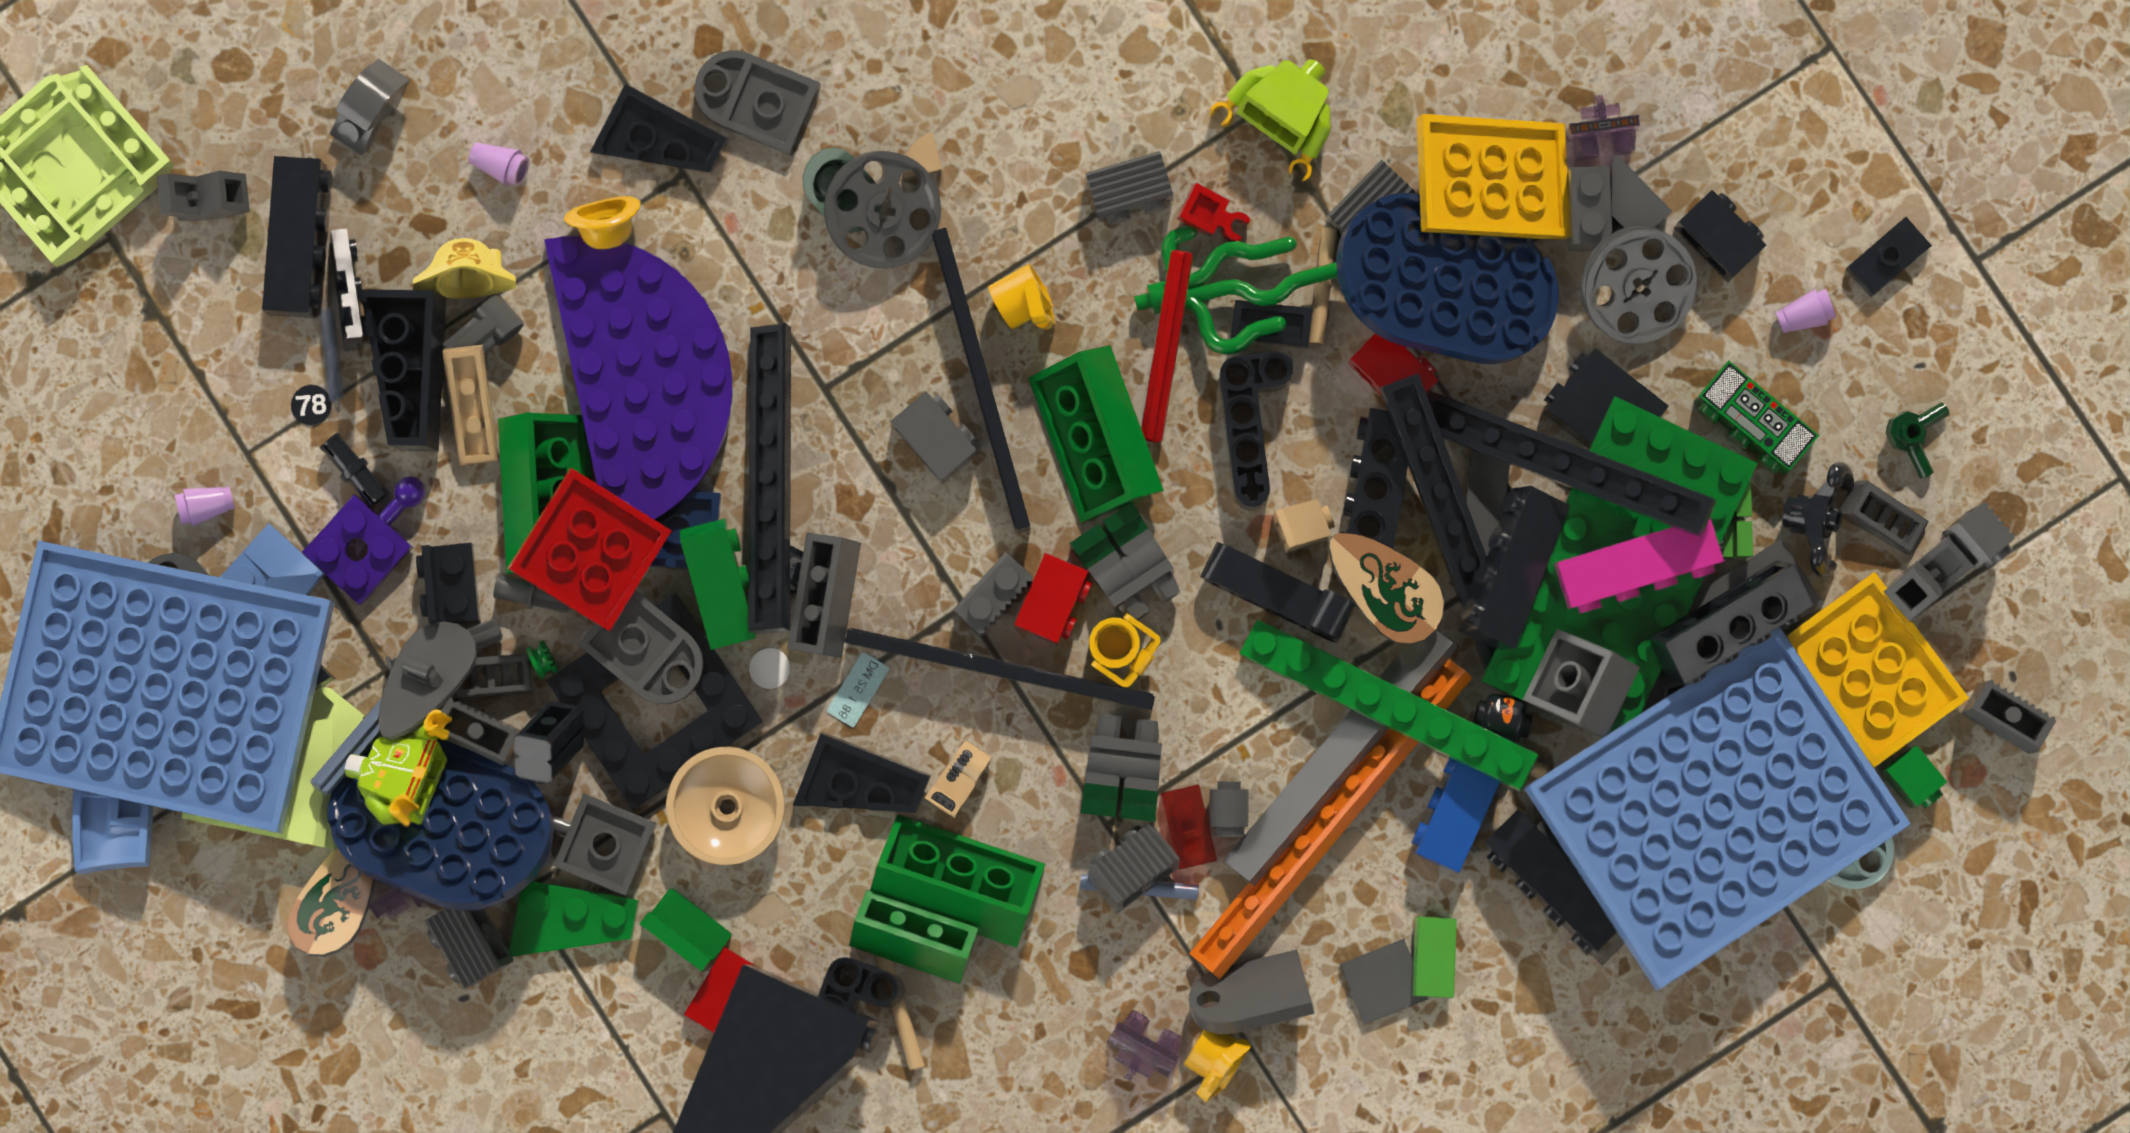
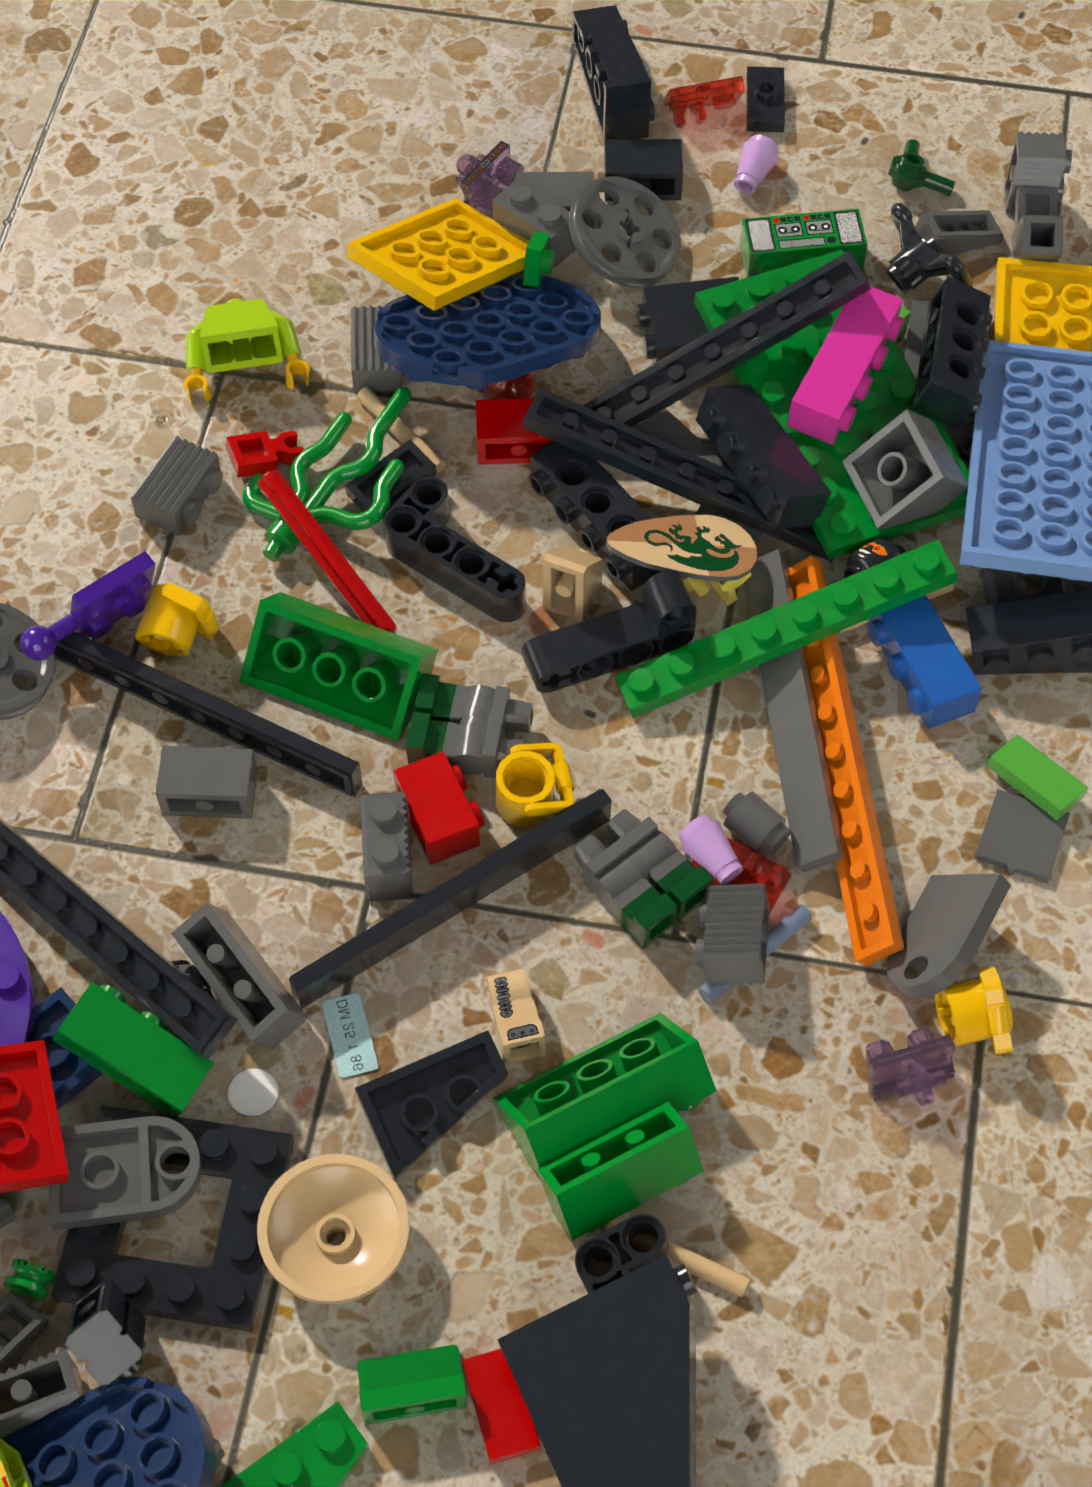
camera: 50 degrees left, 25 degrees down
(578, 850) = (246, 1418): dark grey plate -> none
(973, 246) = (96, 607): none -> dark purple plate
(1174, 803) = (710, 848): none -> lavender cone
(1549, 250) = (538, 259): none -> green plate
(1796, 122) = (613, 73): none -> black wedge
(1850, 220) = (696, 97): none -> clear red plate

